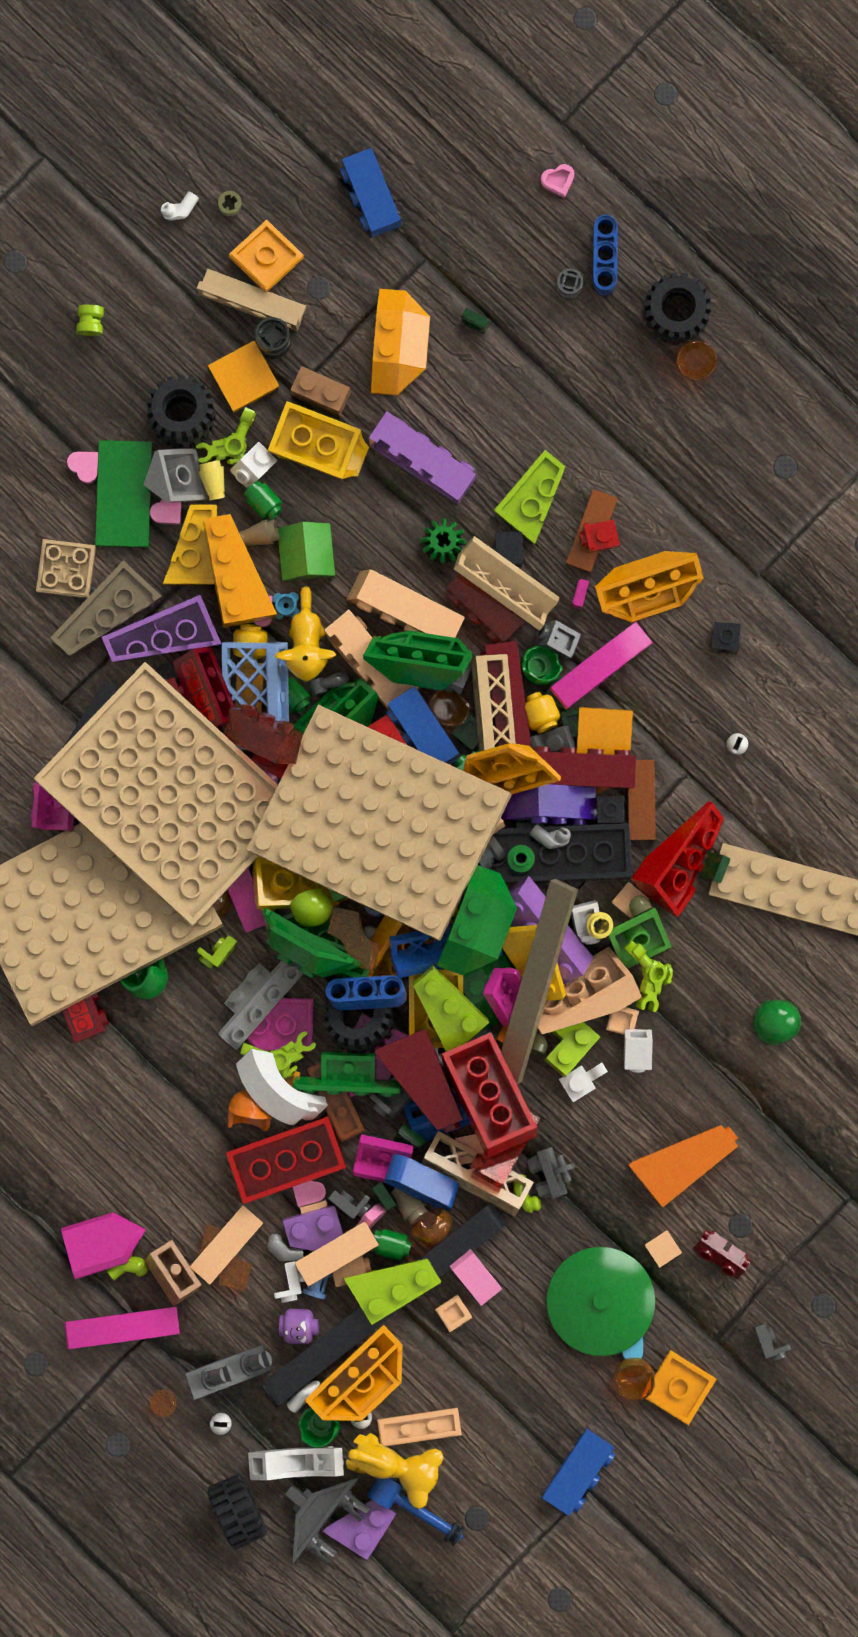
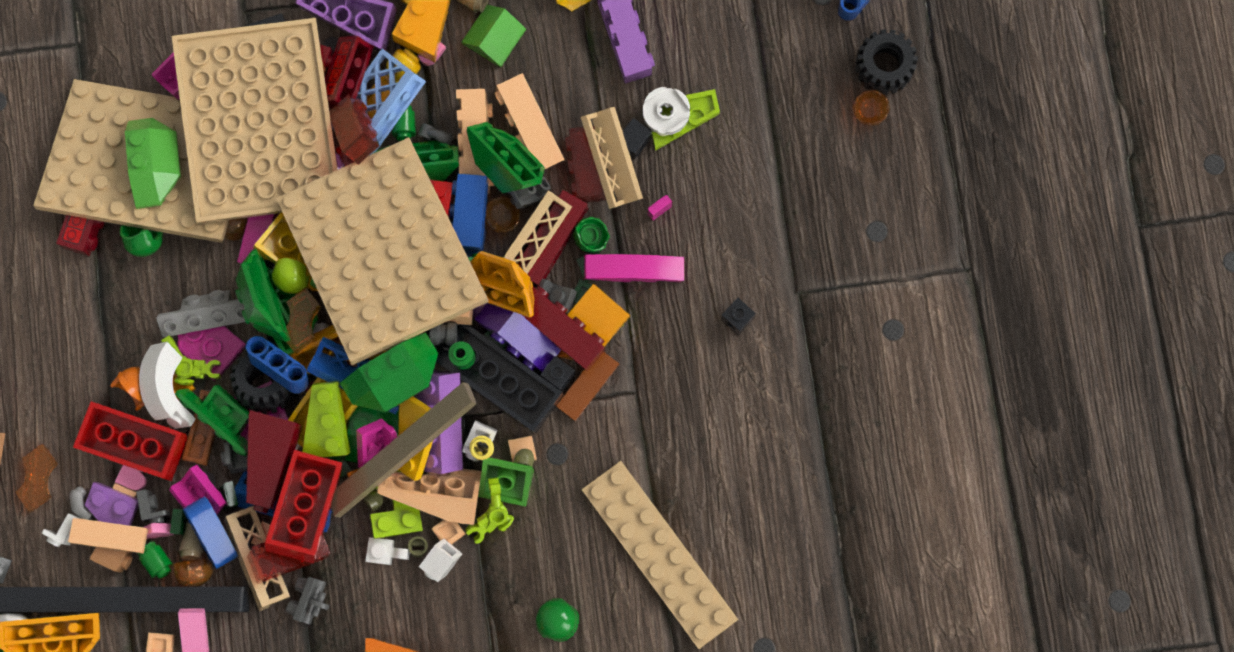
camera: 40 degrees right, 5 degrees down
(103, 901) = (151, 161): none -> bright green wedge
(222, 950) = (211, 261): lime bracket -> none
(226, 1244) = (42, 468): light nougat tile -> none
(281, 599) = (447, 54): dark azure plate -> none
(298, 1326) = (42, 566): medium lavender head -> none
(306, 656) = (432, 99): yellow animal -> none
(318, 1288) = (78, 551): medium blue bush -> none
(391, 1288) = (125, 591): lime wing -> none
(433, 543) = (583, 97): green gear -> none
(467, 733) = (503, 241): dark green tile -> none
(512, 490) = (665, 124): none -> white plate
(530, 1203) = (276, 609): lime arm -> none
(541, 712) = (565, 268): yellow head -> none
(551, 839) = (496, 359): light grey arm -> none
(557, 638) = (619, 226): bracket -> none
(598, 510) = (703, 171): dark orange tile -> none
(599, 536) = (704, 177): red bracket -> none
(604, 1049) = (417, 542): none -> olive hinge
(649, 585) = (712, 238): light orange wedge -> none
(671, 868) = (572, 449): red wedge -> none
(715, 867) = (601, 473): dark green tile -> none
(731, 742) = (691, 402): white hinge -> none

